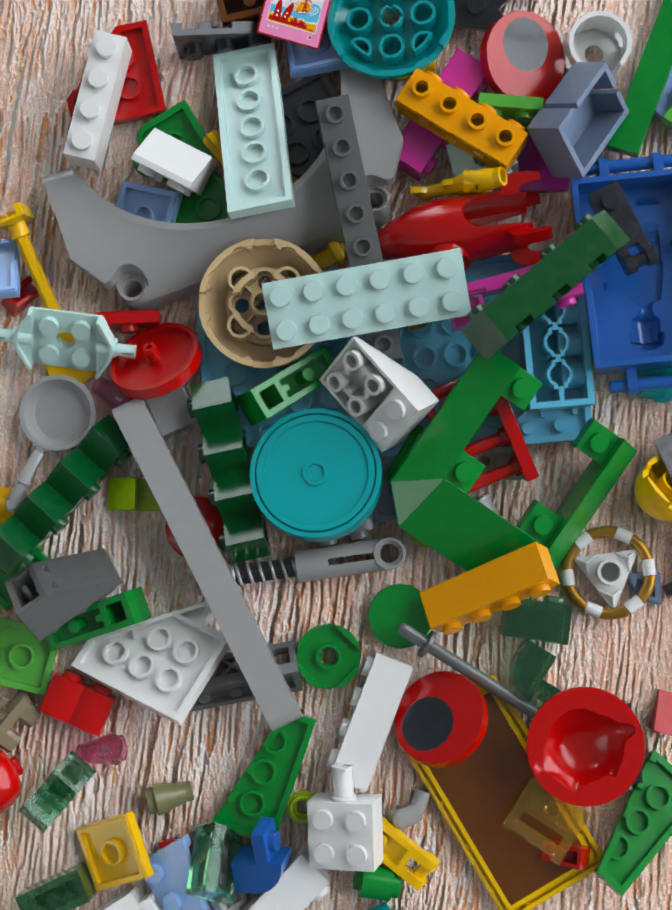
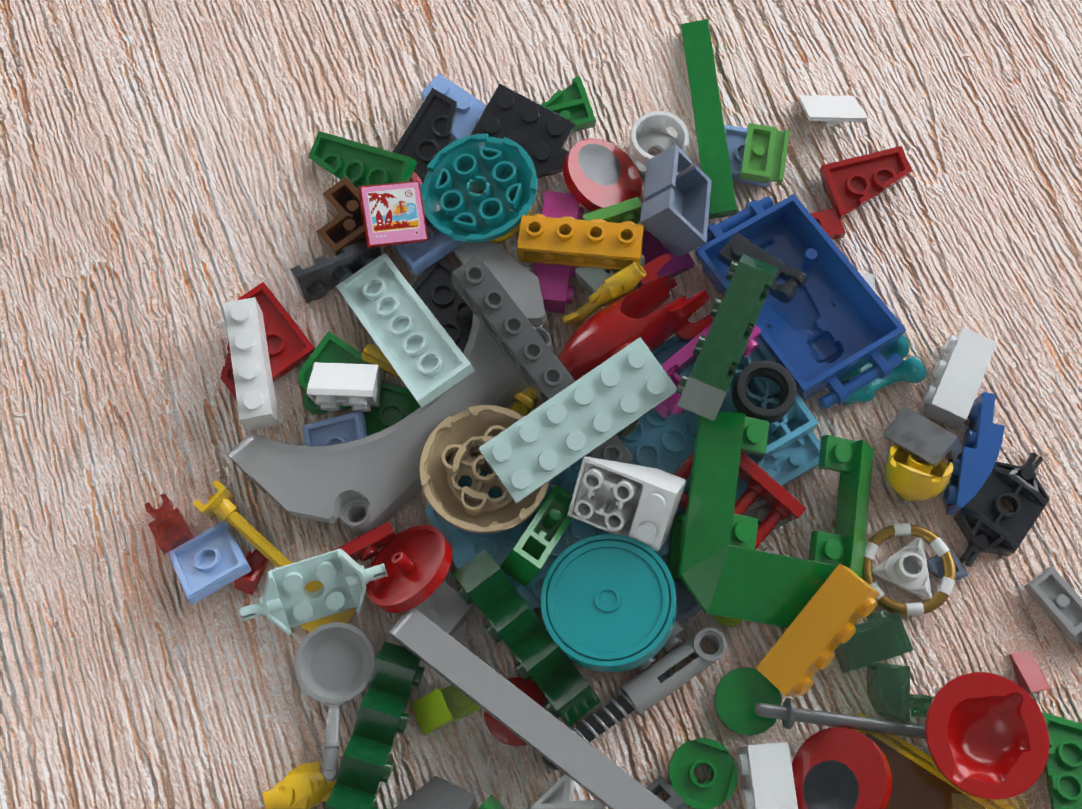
camera: 30 degrees left, 15 degrees down
(109, 393) = (377, 621): clear pink cone -> none
(582, 351) = (778, 375): none -> black tyre

